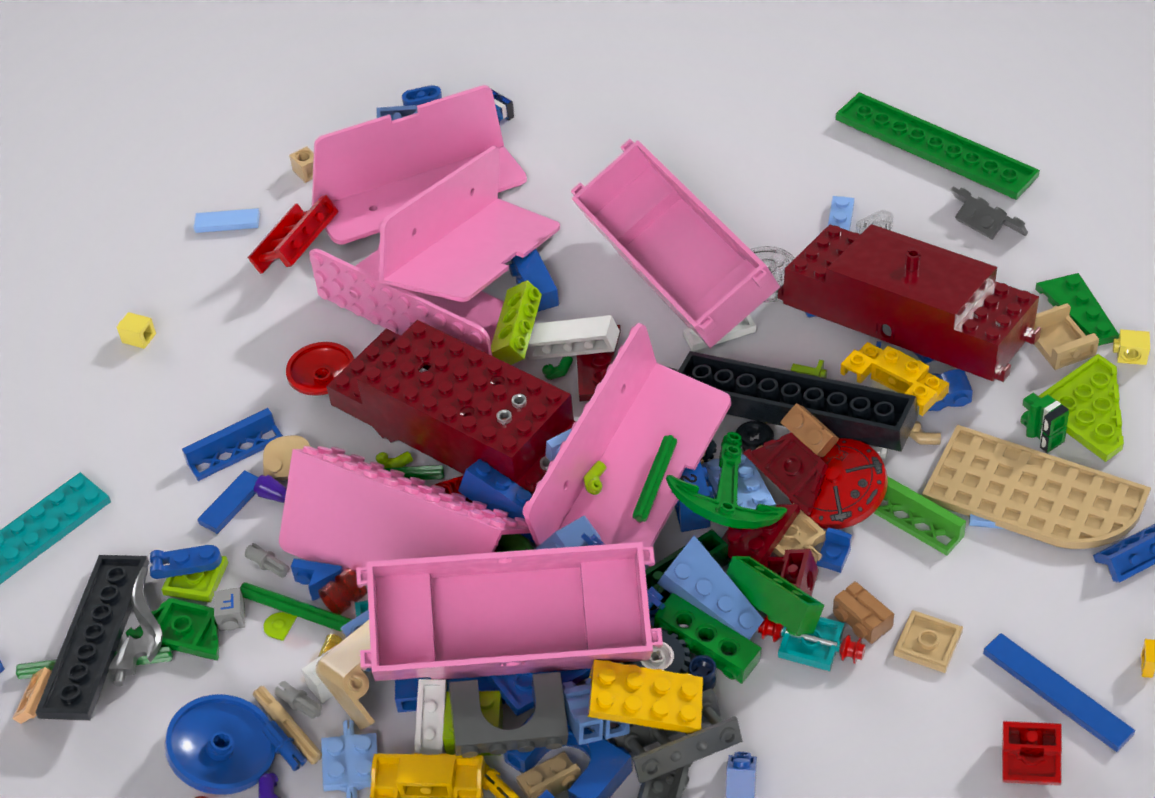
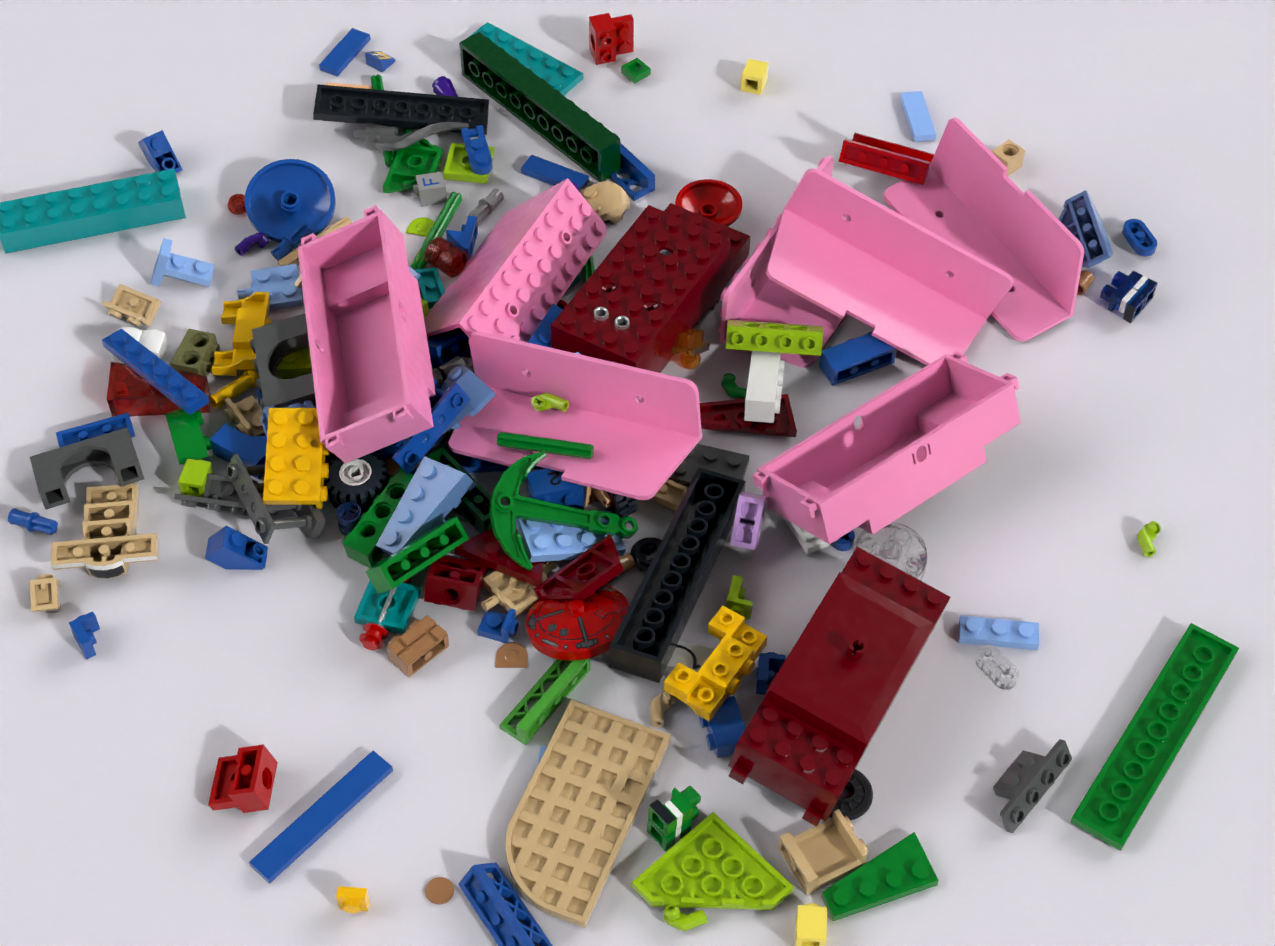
camera: 80 degrees right, 5 degrees up
(42, 440) = (610, 37): none -> red brick
(66, 598) = (444, 87): none -> dark purple cone
(91, 426) = (635, 70): none -> green plate
(131, 503) = (540, 107): none -> dark green brick
(730, 346) = (748, 520): none -> lavender brick
(746, 131) = (1146, 536): none -> lime arm
(809, 430) = (617, 573): medium nougat brick -> none
(865, 546) = (511, 656): none -> medium nougat piece
(928, 641) = (388, 706): tan tile -> none
(1124, 600) = (439, 890): none -> medium nougat piece
(1134, 427) = (682, 921): none -> lime arm

